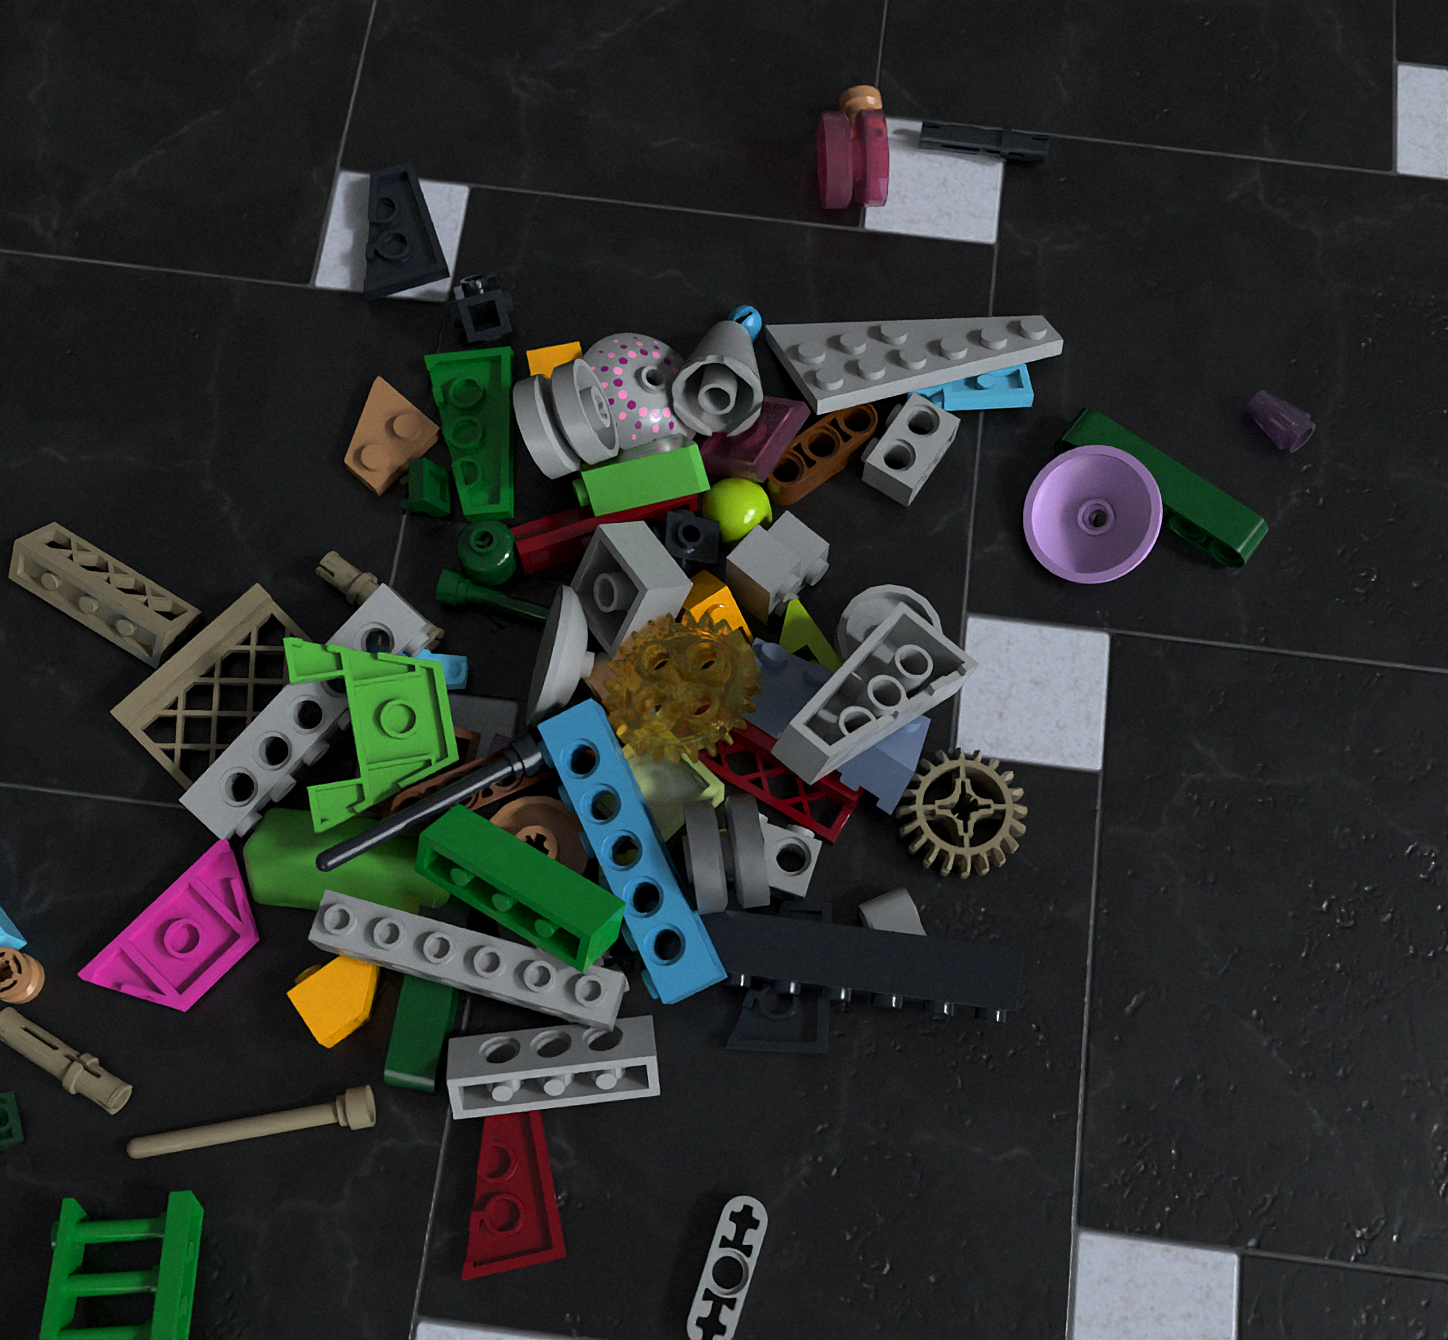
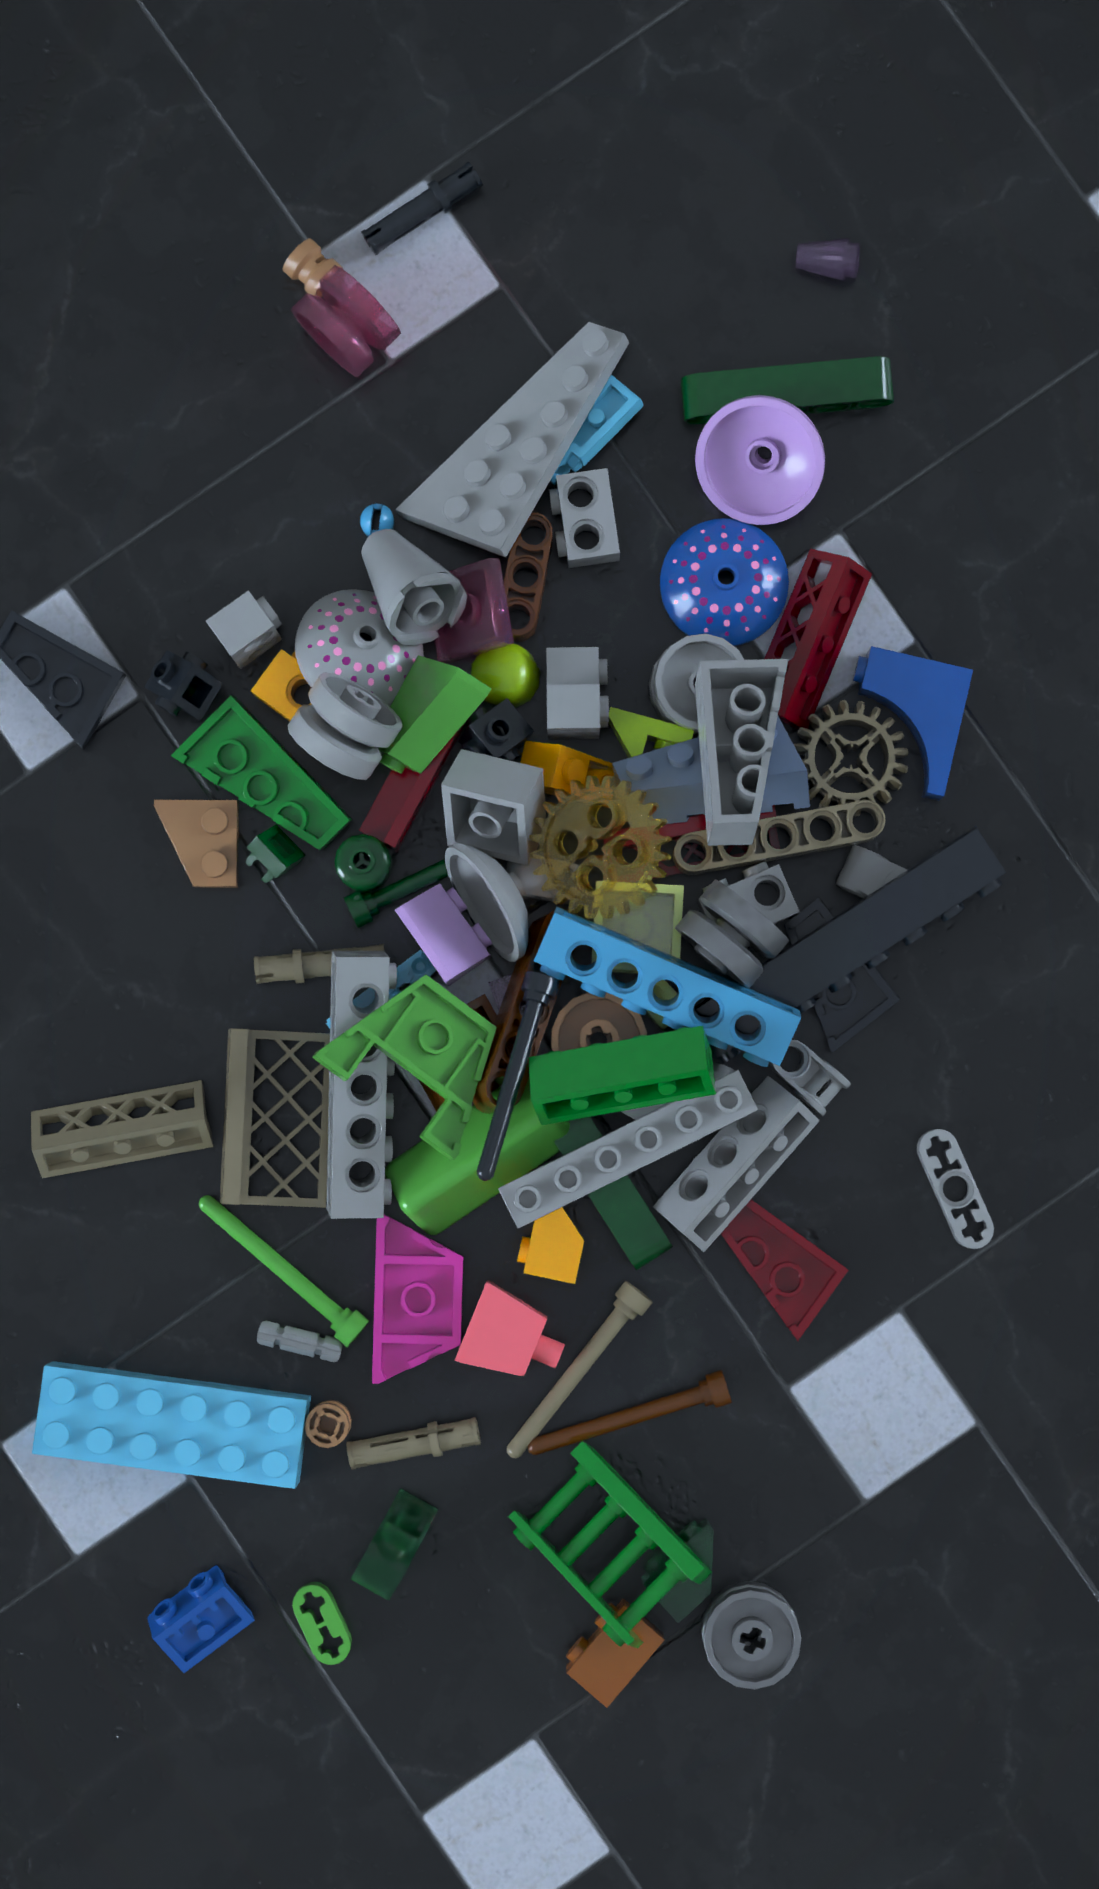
camera: 35 degrees left, 15 degrees up
(62, 887) = (299, 1341): none -> light grey axle
(110, 905) = (344, 1322): none -> bright green piece
(225, 1036) = (507, 1334): none -> coral torso
(345, 1255) = (710, 1391): none -> reddish brown piece
(494, 658) = (444, 933): none -> lavender slope
(566, 304) = (246, 628): none -> light grey brick
(688, 1051) = (810, 1077): none -> light grey piece
(855, 842) = (801, 840): none -> dark tan beam
(979, 617) = (730, 611): none -> blue dish
(1019, 694) = (821, 635): none -> dark red fence
(1070, 818) = (926, 698): none -> blue arch

